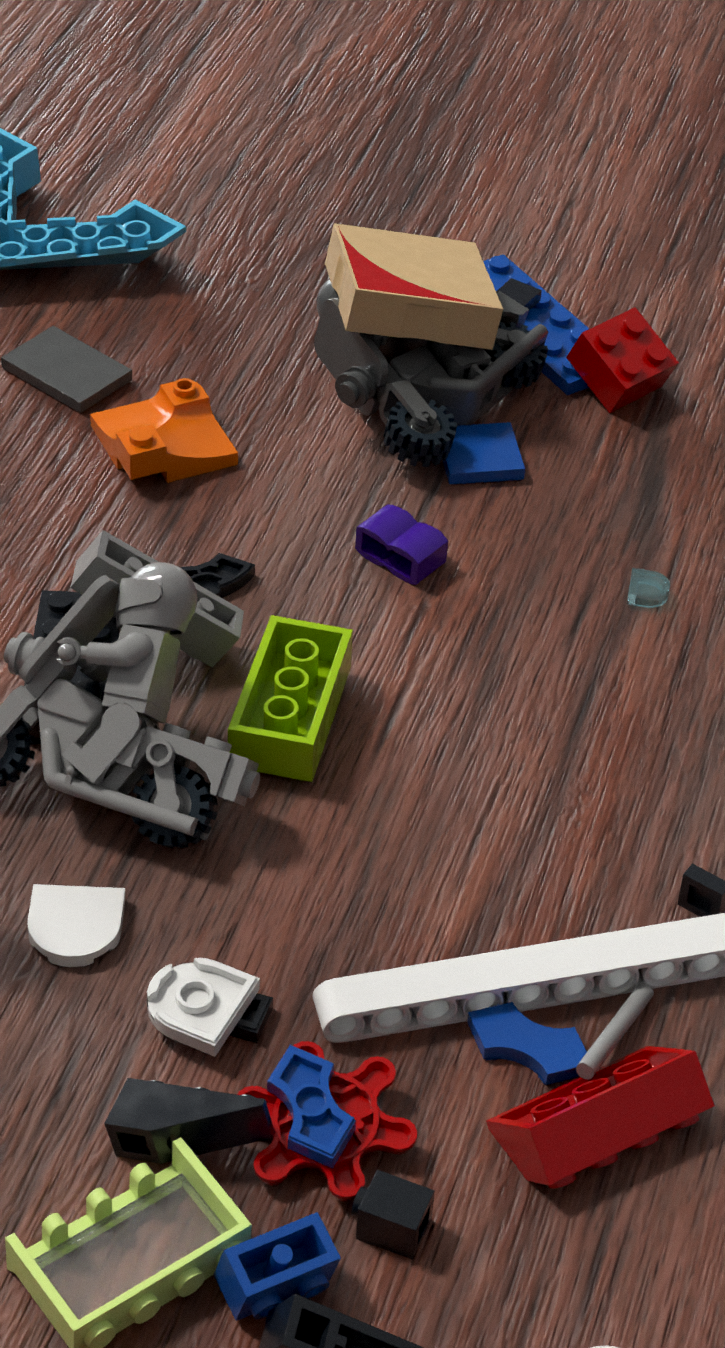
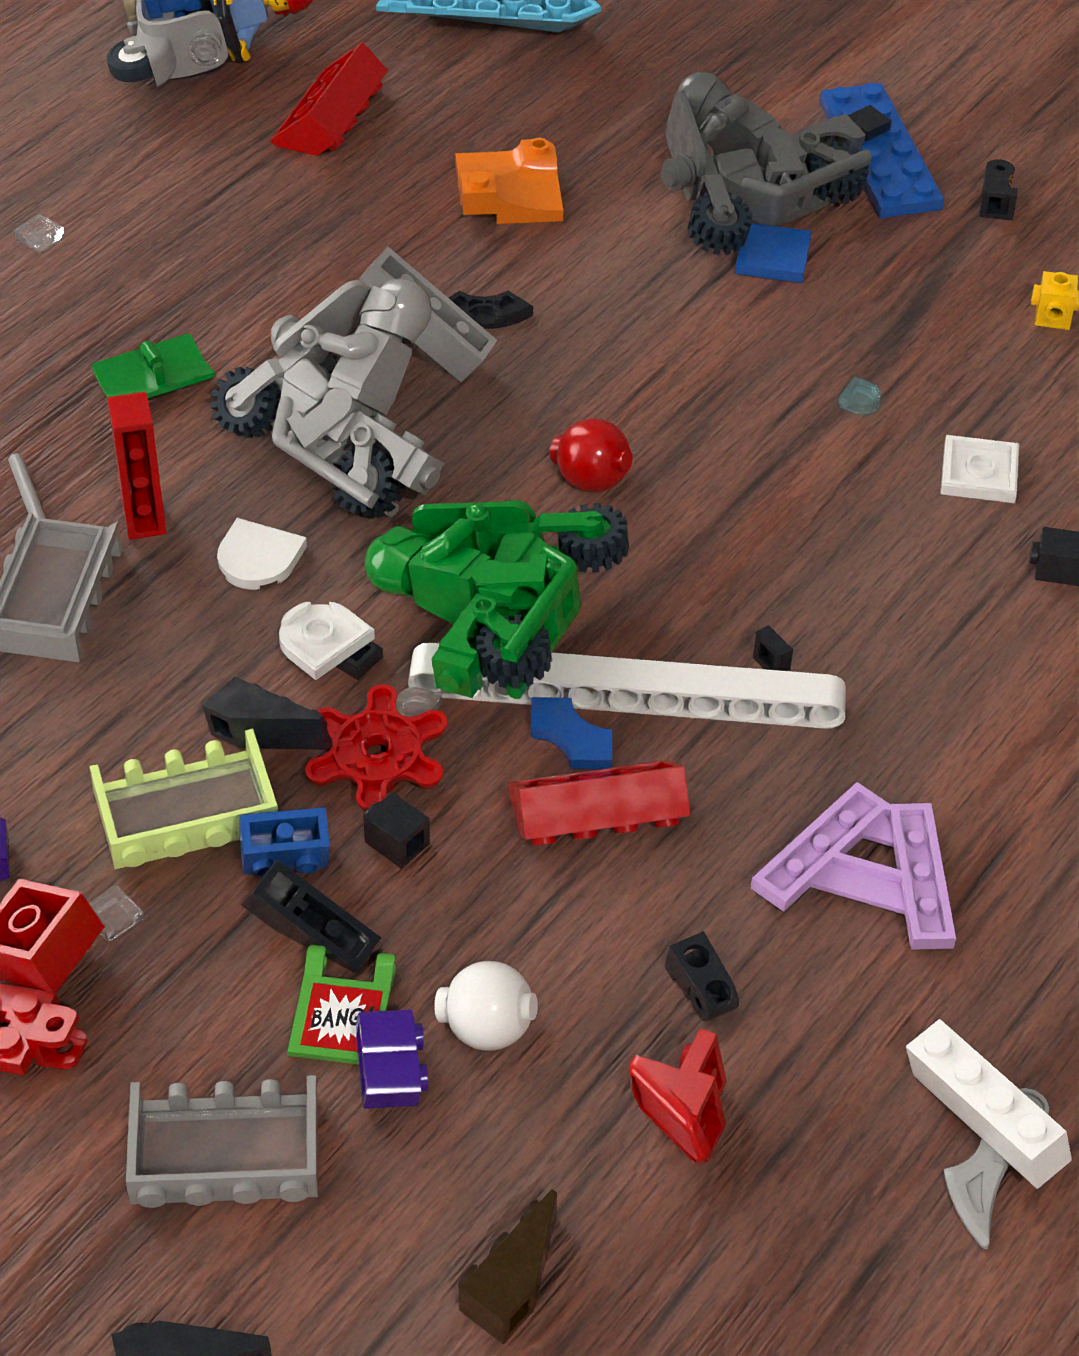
camera: 20 degrees right, 5 degrees up
(66, 369) = (455, 112): dark grey tile -> none
(291, 696) = (504, 418): lime brick -> none
(319, 1125) = (365, 747): blue tile -> none
(344, 1051) = (416, 701): none -> clear tile
(385, 887) = (496, 583): none -> green piece
(401, 544) = (663, 314): dark purple brick -> none
(404, 716) = (592, 455): none -> red brick
(412, 286) = (754, 93): tan tile -> none
(614, 1031) = (642, 740): light grey bar -> none
(622, 359) = (933, 195): red brick -> none
(675, 335) = (997, 195): none -> black leg

